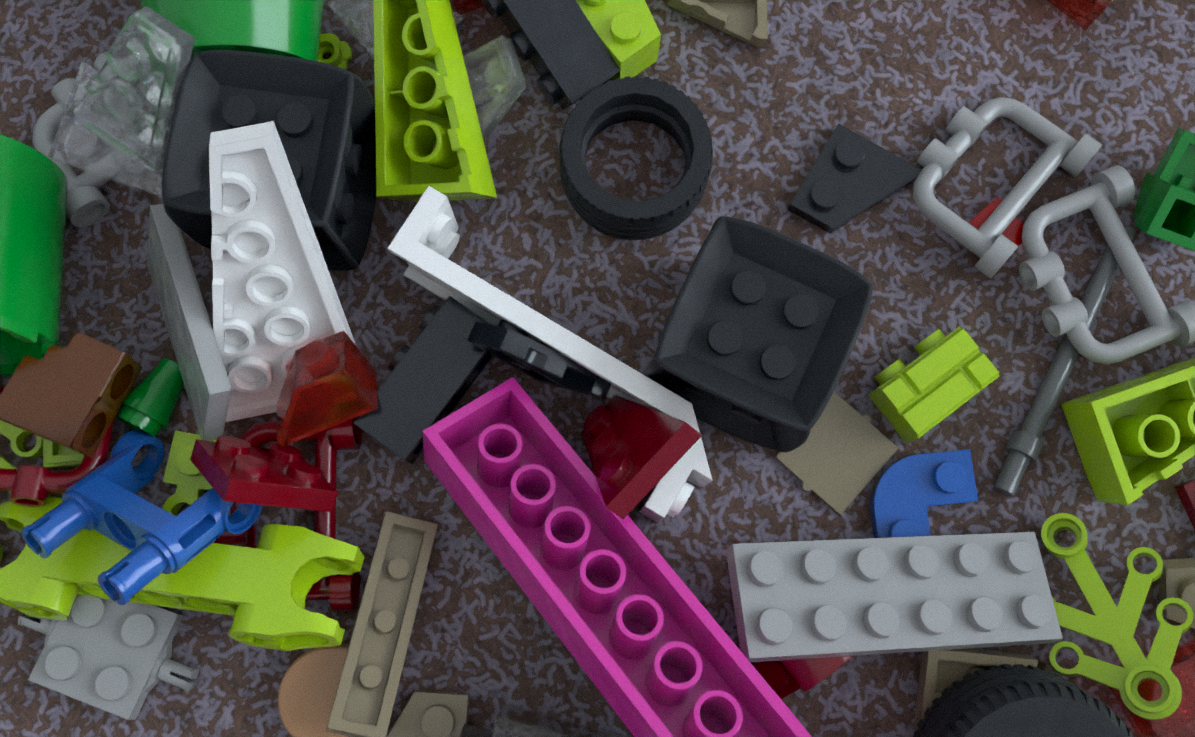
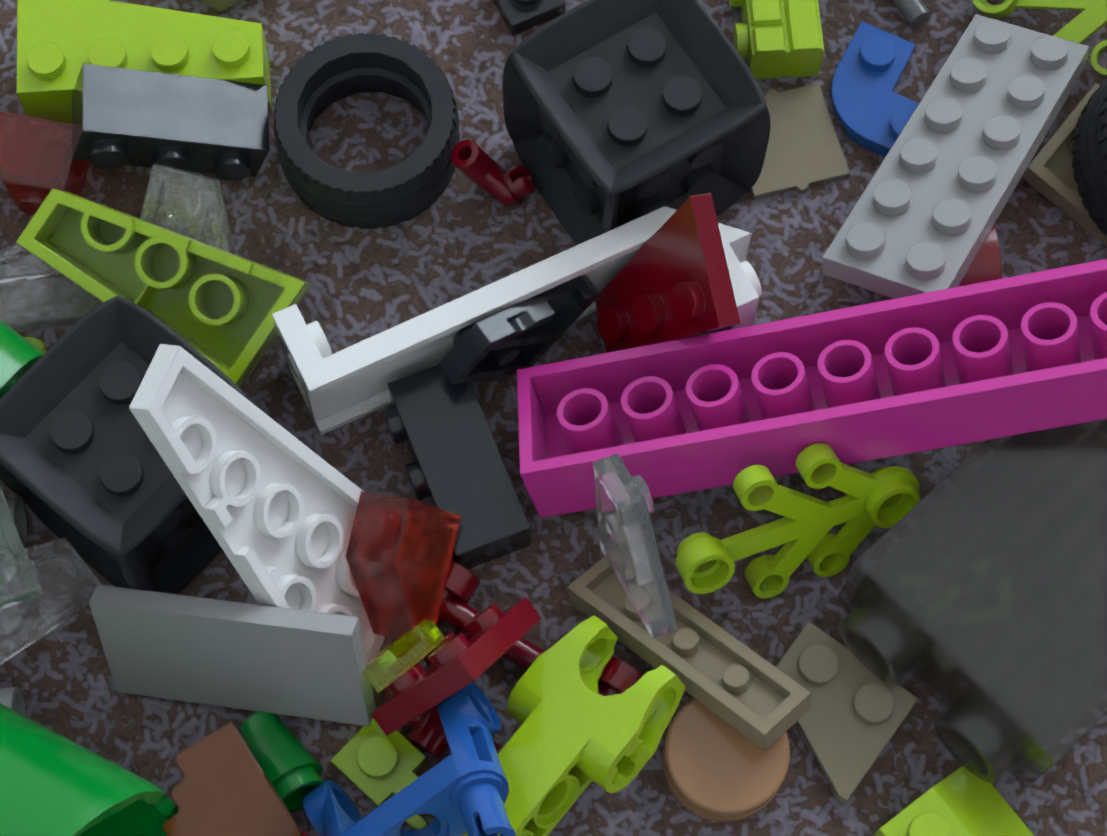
camera: 55 degrees left, 10 degrees down
(247, 433) = (402, 654): none -> clear neon green tile
(430, 537) = (630, 542): none -> clear wing
(573, 698) = (871, 501): none -> lime plant
(662, 263) = (490, 176): none -> dark red arm

